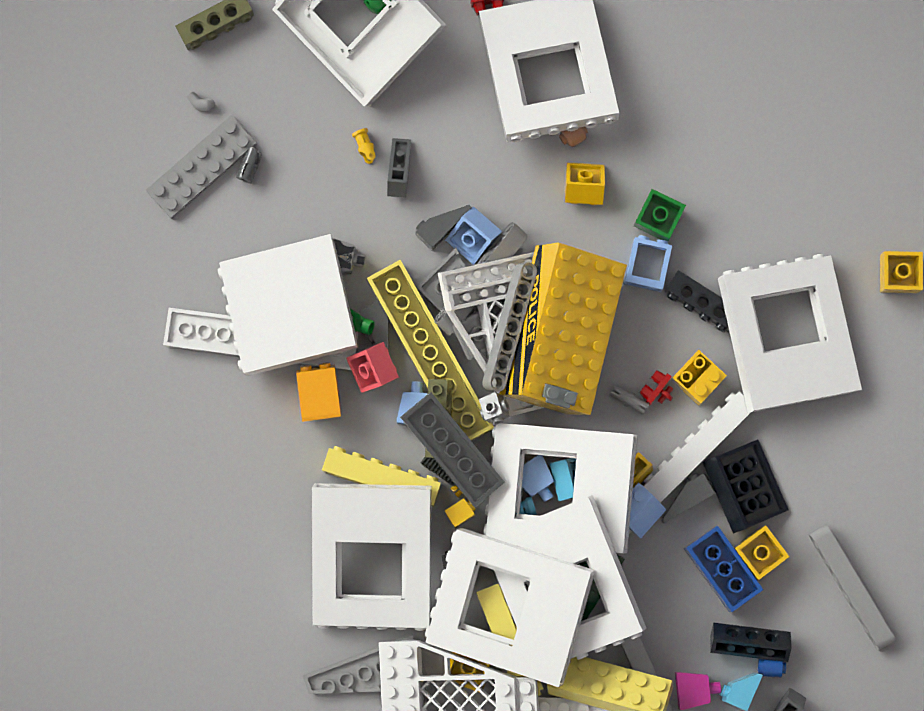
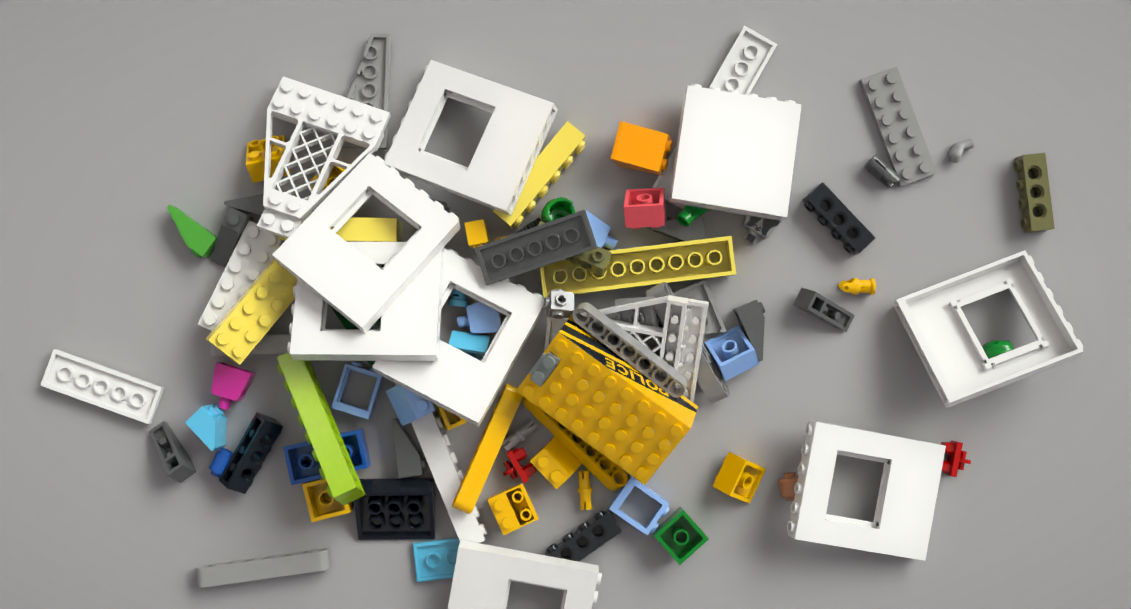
camera: 110 degrees right, 5 degrees up
(317, 159) = (862, 235): none -> black brick
(402, 446) = (557, 209): none -> green piece
(619, 338) = (579, 449): none -> yellow beam
(638, 355) = (555, 462): none -> yellow slope
(654, 319) = (584, 490): none -> yellow pin
(655, 422) = (487, 449): none -> yellow beam
(670, 565) = (349, 408): none -> light blue window
(701, 577) = (321, 429): none -> lime brick
(775, 429) = (435, 559): none -> medium azure tile

